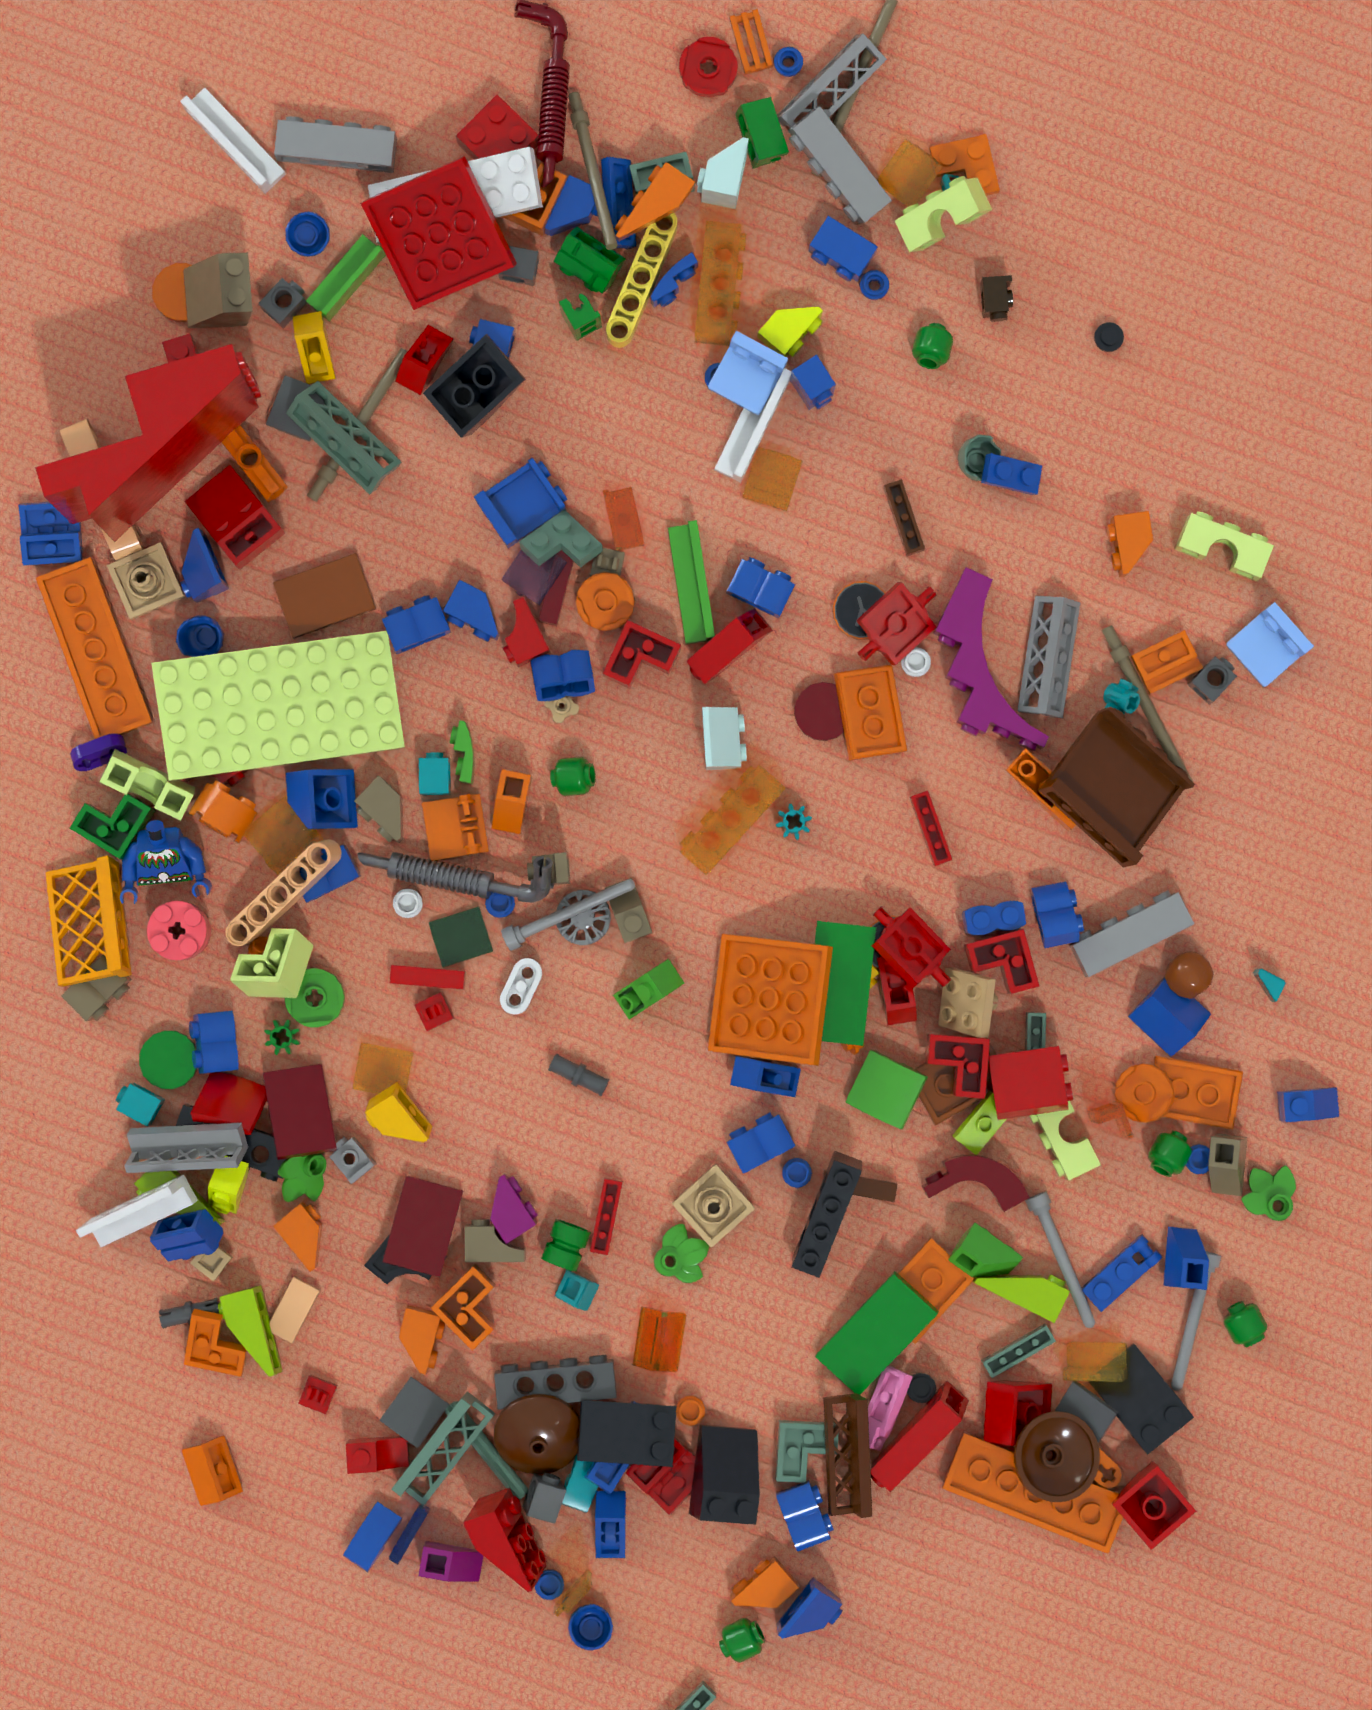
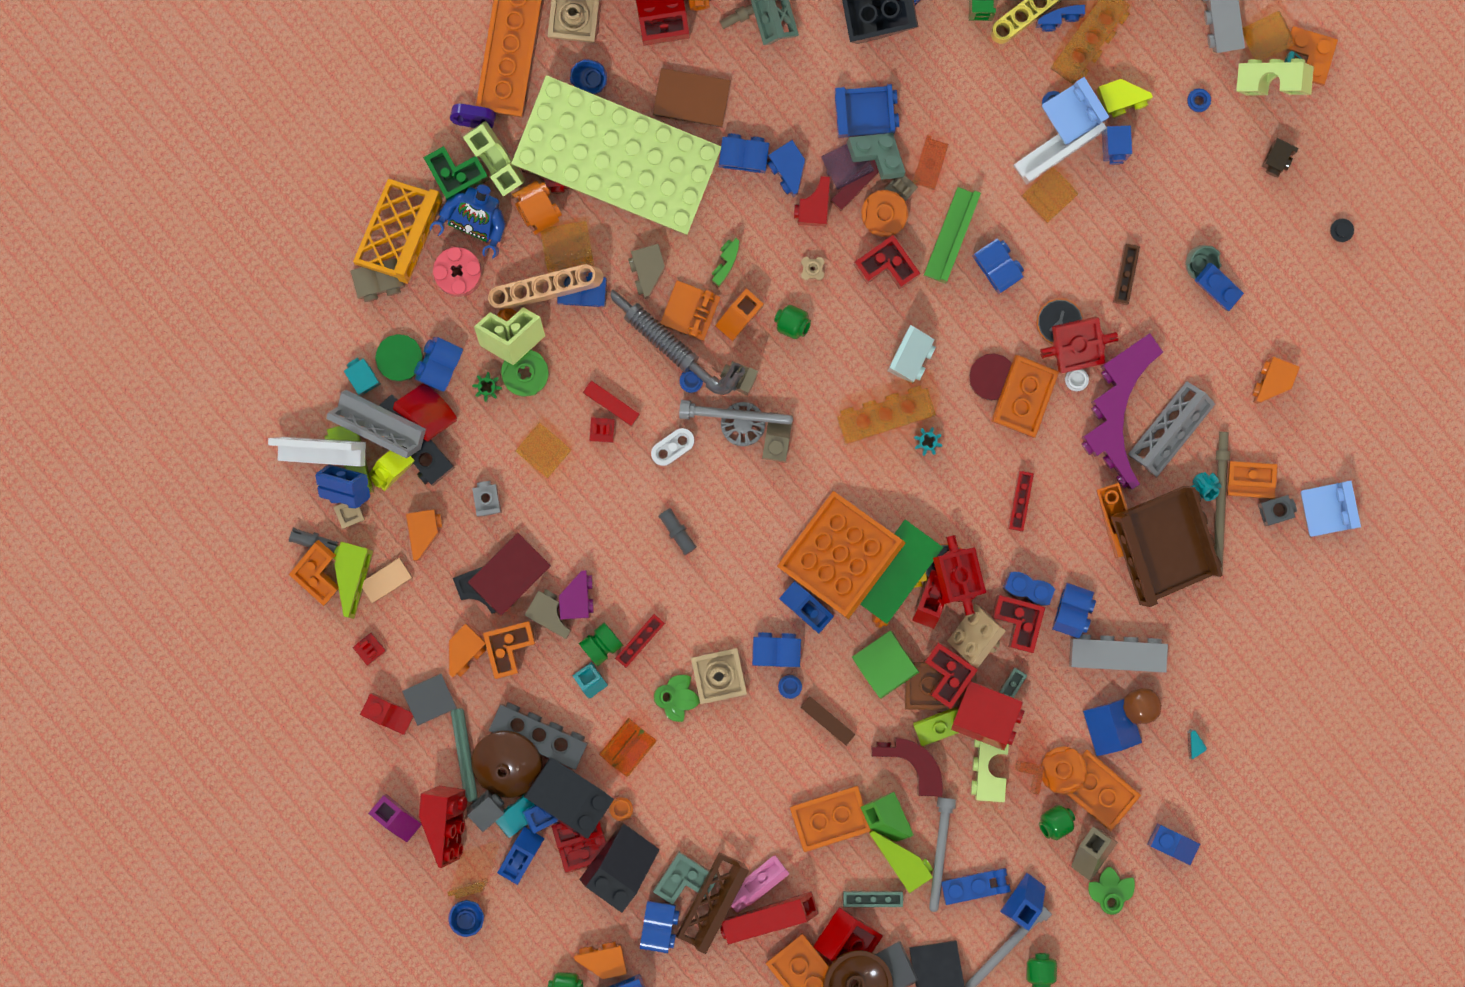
camera: 25 degrees right, 0 degrees up
(201, 569) = (617, 31): blue slope -> none
(212, 1471) = (266, 659): orange panel -> none
(299, 1111) = (469, 445): dark red tile -> none
(302, 1177) = (446, 491): bright green plate -> none
(323, 797) = (610, 237): blue slope -> none
(372, 1536) = (350, 769): blue slope -> none
(397, 1115) = (535, 487): yellow slope -> none
(407, 903) = (627, 344): white plate -> none
(409, 1533) = (377, 781): clear blue tile -> none
(431, 1448) = (427, 730): sand green fence -> none
(434, 775) = (697, 265): teal brick -> none
(460, 937) = (650, 389): clear green piece -> none
(550, 1585) = (454, 873): blue plate -> none
(562, 675) = (825, 247): blue brick -> none
(648, 989) = (760, 500): bright green slope -> none
(728, 645) = (953, 293): red slope -> none
(827, 1214) = (794, 726): black brick -> none
(842, 249) = (1190, 63): blue brick -> none
(876, 1333) = (781, 829): green tile -> none
(921, 1388) = (790, 886): black plate -> none
(932, 346) = (1215, 166): green head -> none
(1096, 1361) = (923, 937): clear yellow panel -> none
(1199, 1159) = (1075, 838): blue plate -> none
(1249, 552) = (1353, 435): yellowish green arch -> none

